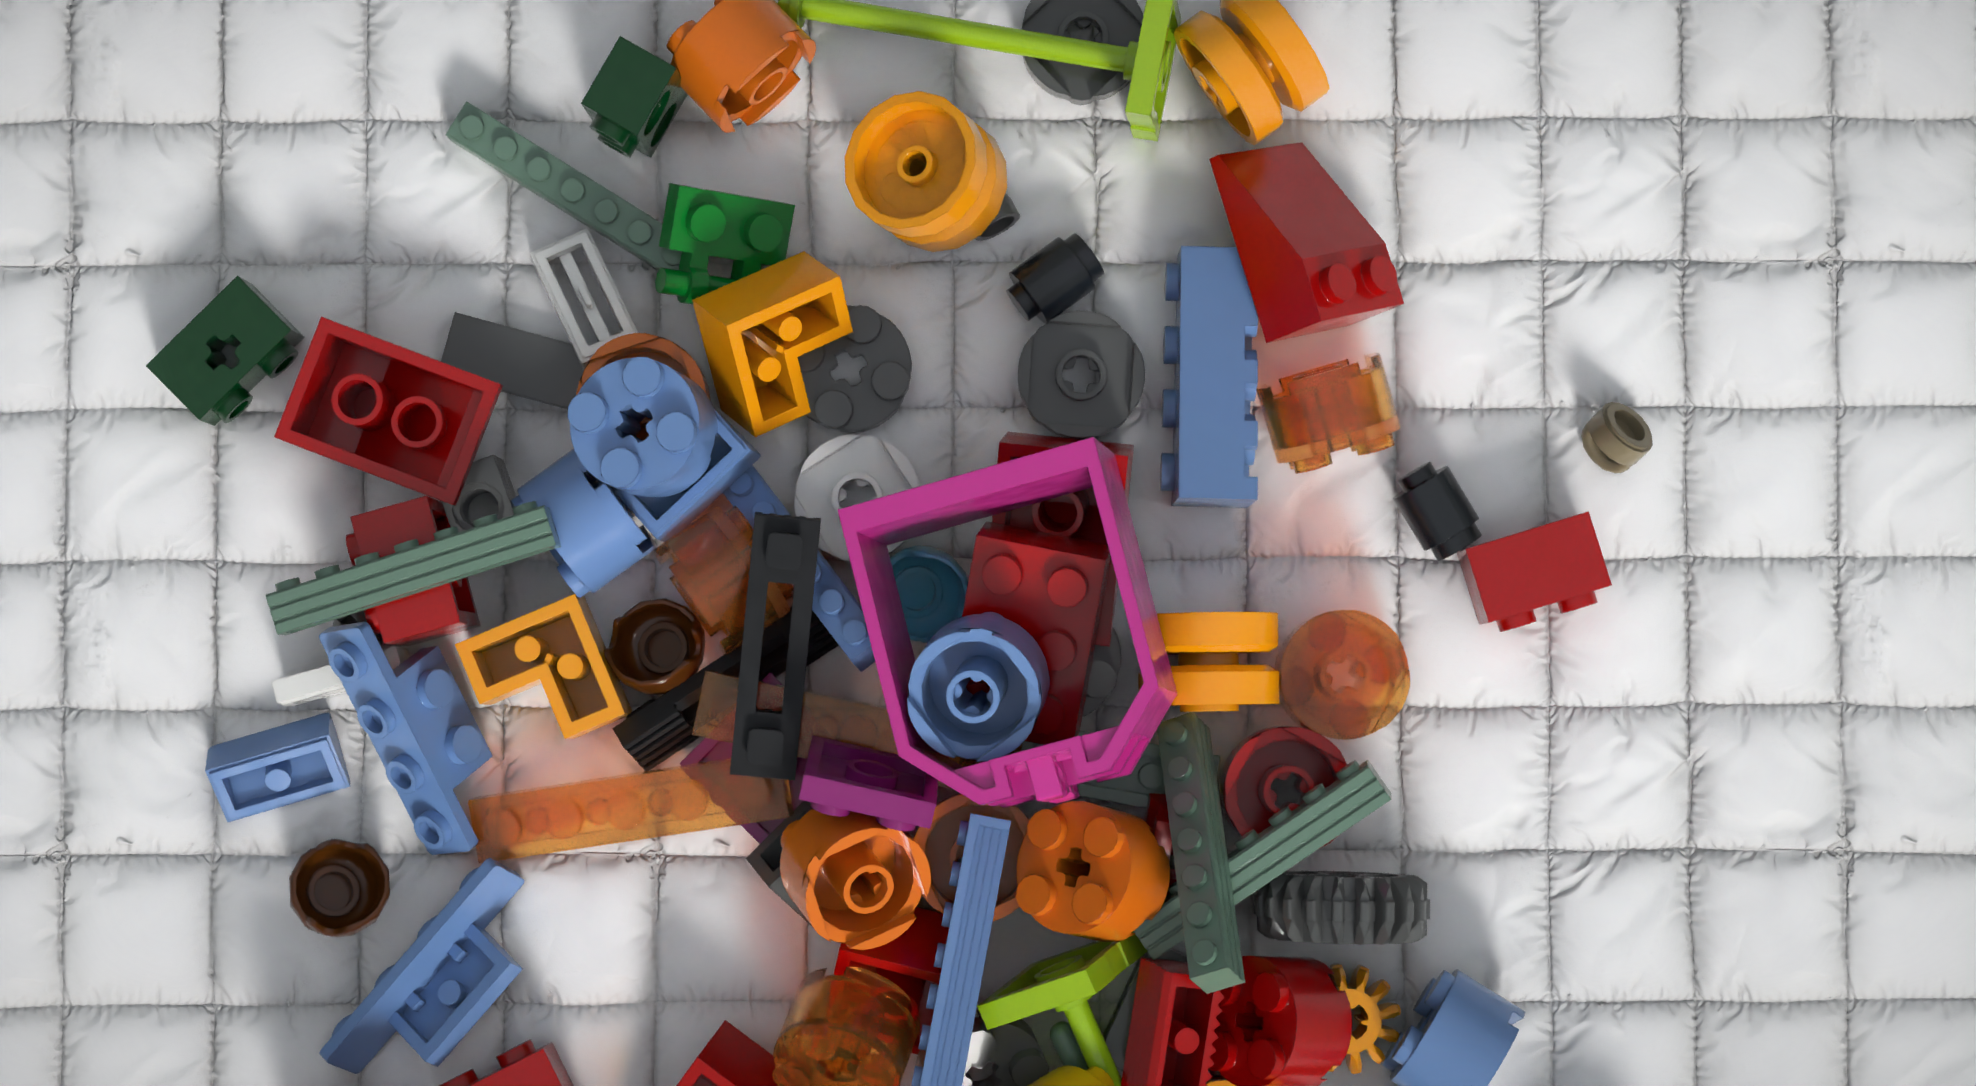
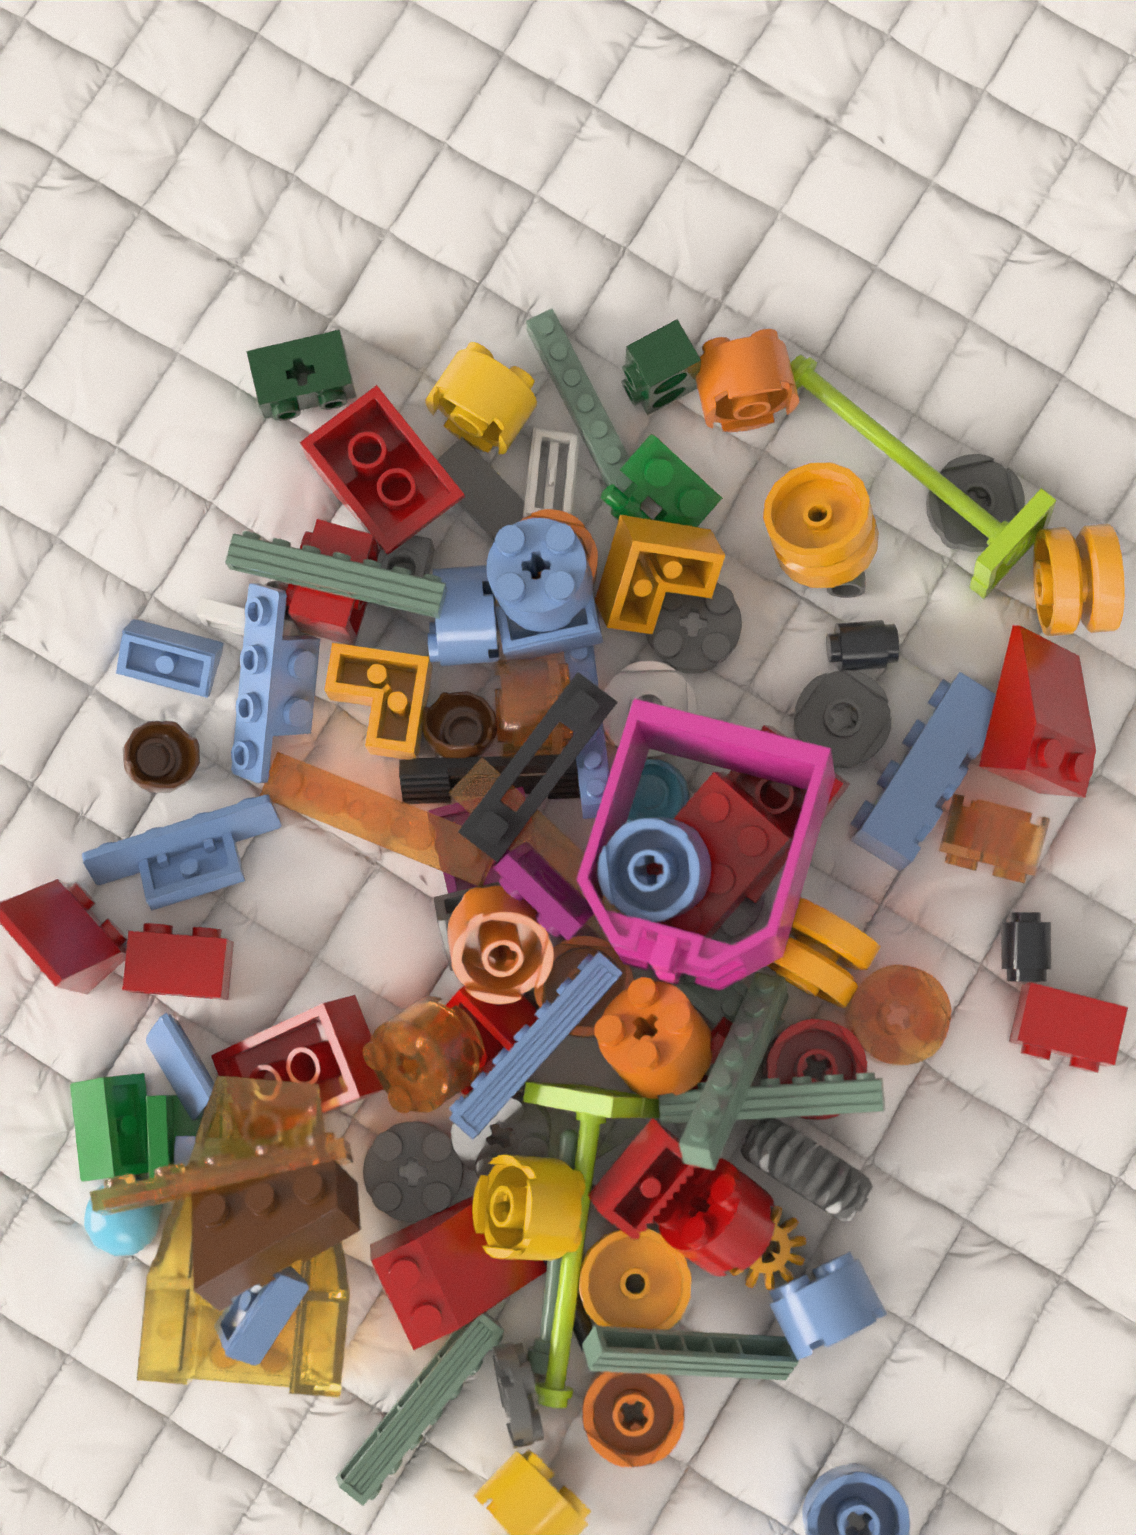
camera: 35 degrees right, 5 degrees down
(453, 257) = (483, 399): none -> yellow brick

